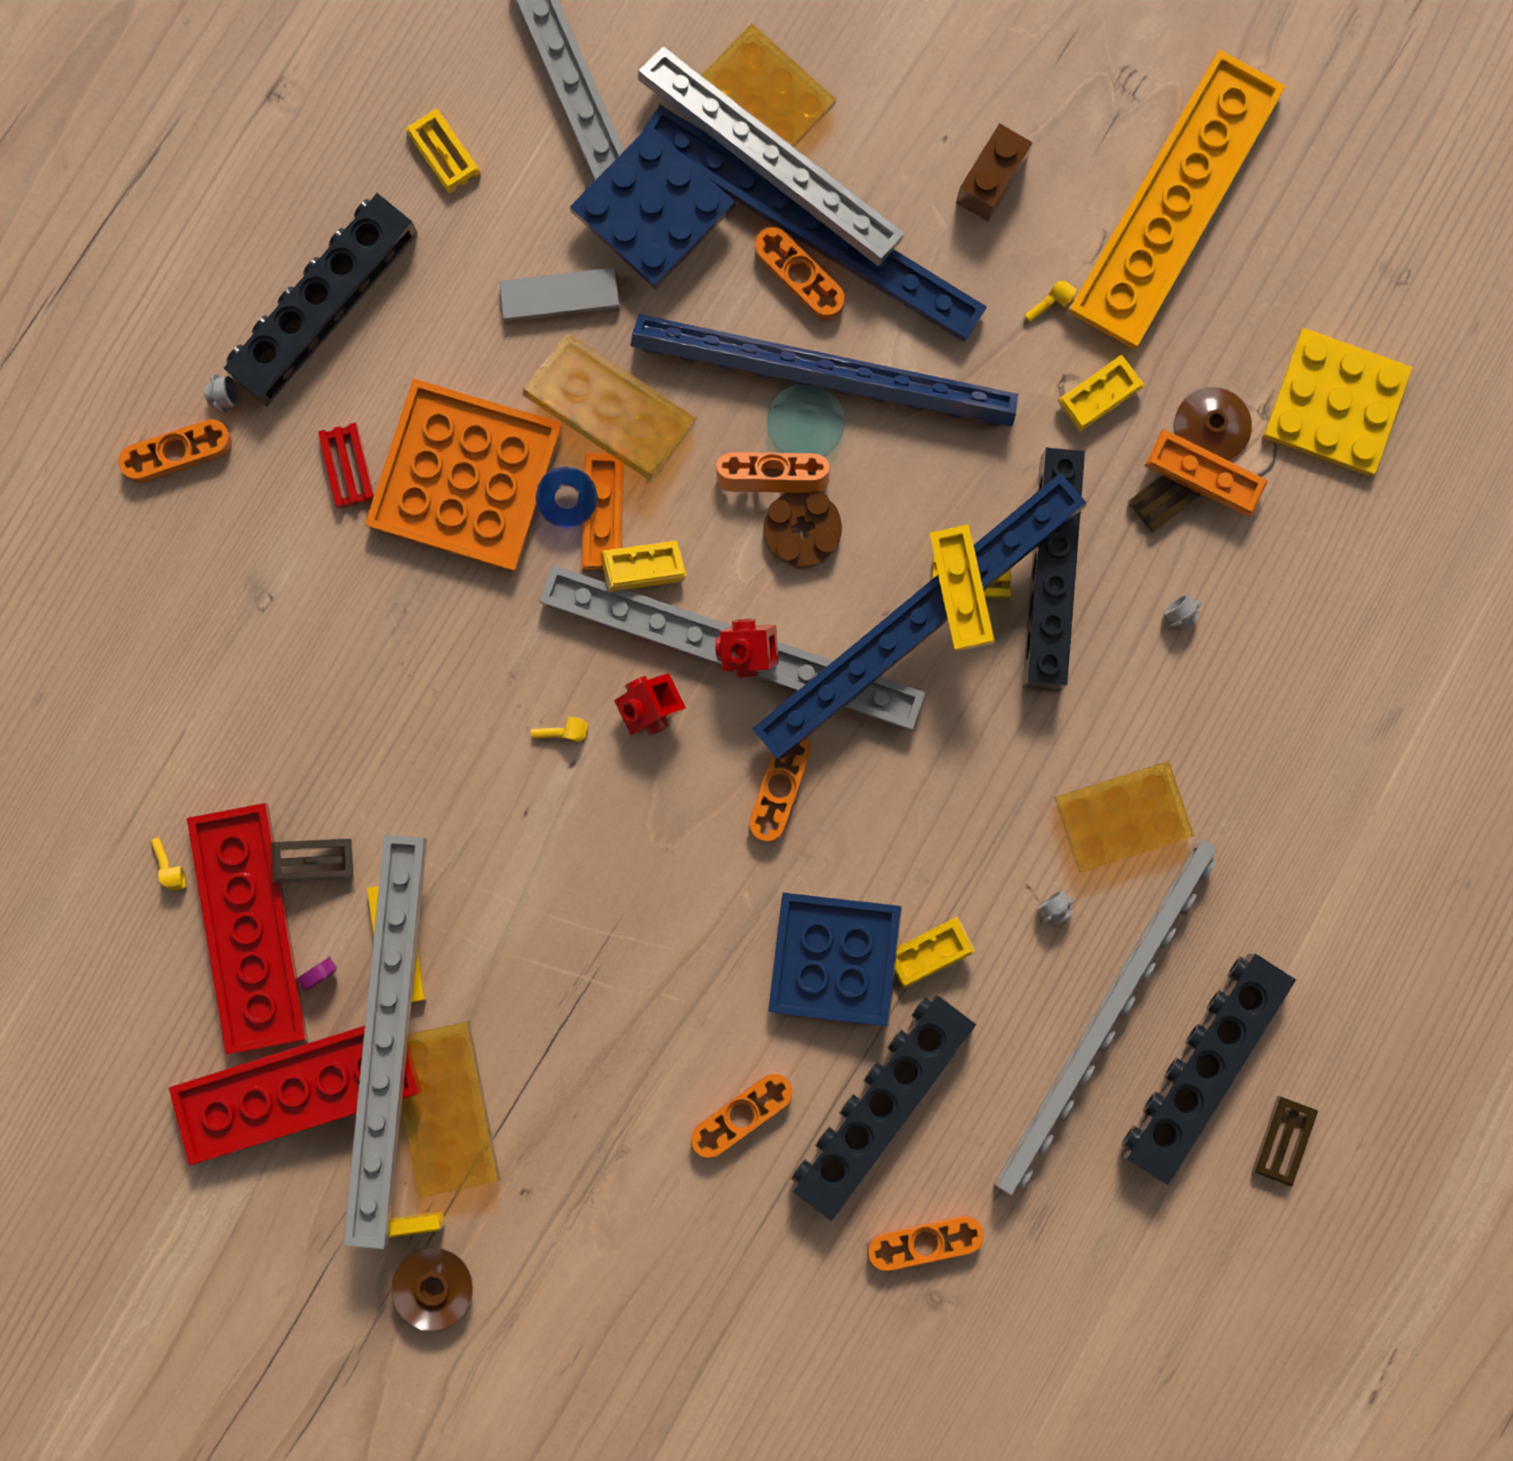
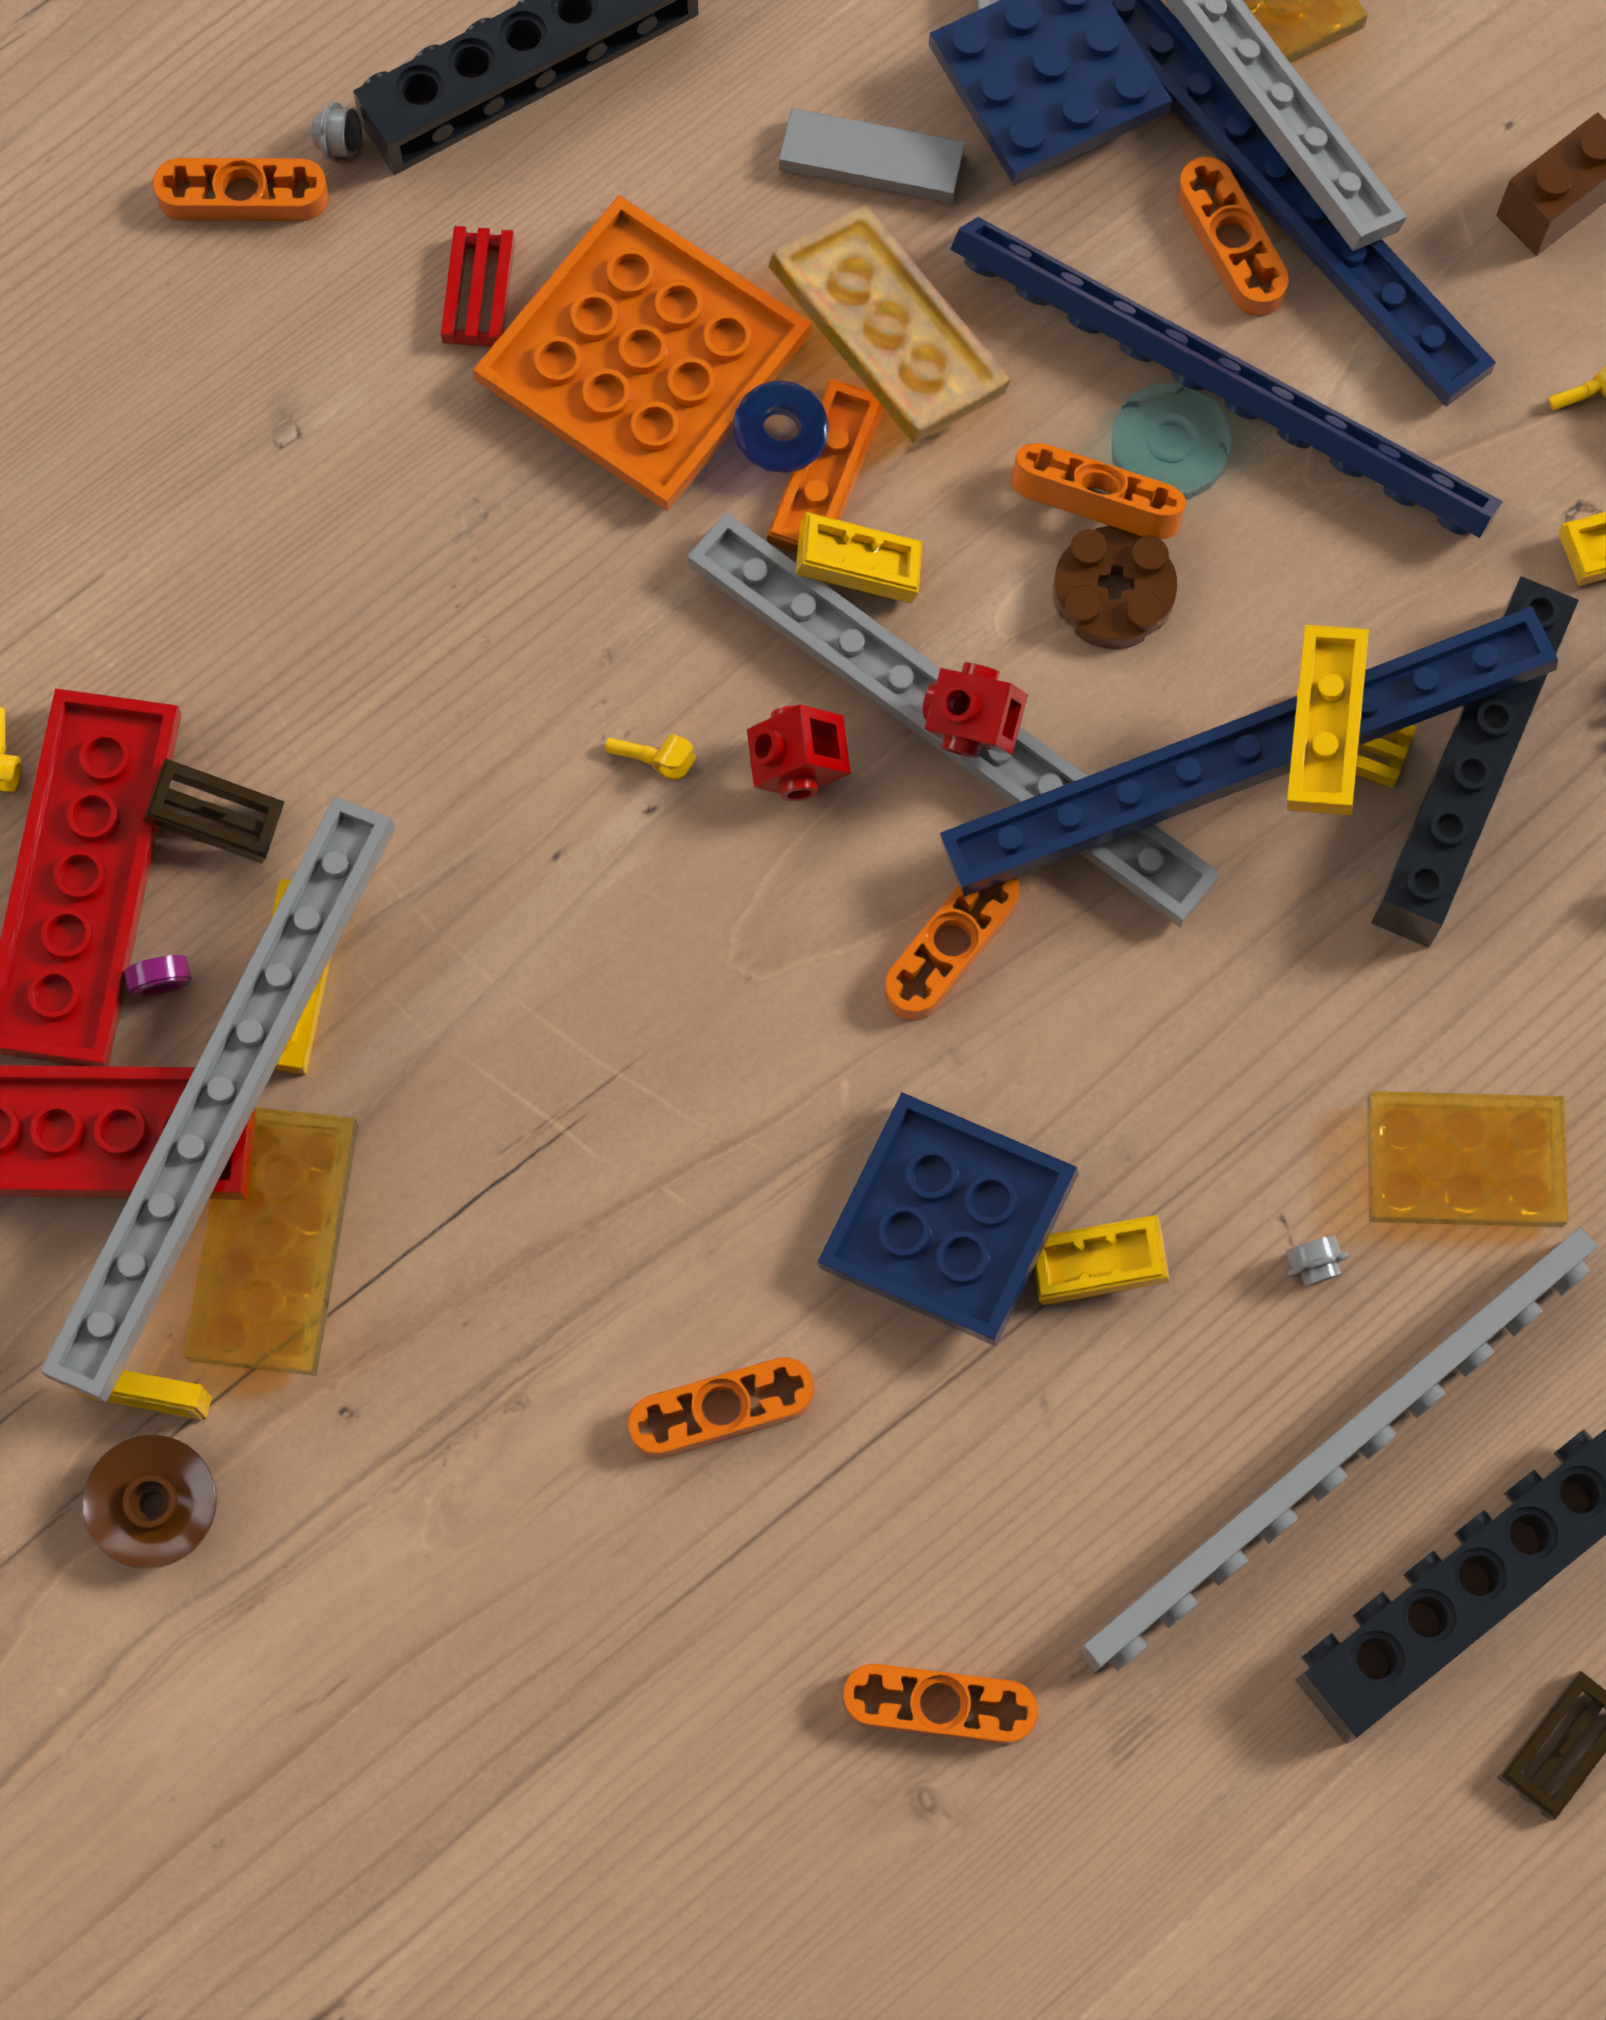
camera: 20 degrees right, 10 degrees down
(829, 1195) = (1094, 1386): black brick -> none

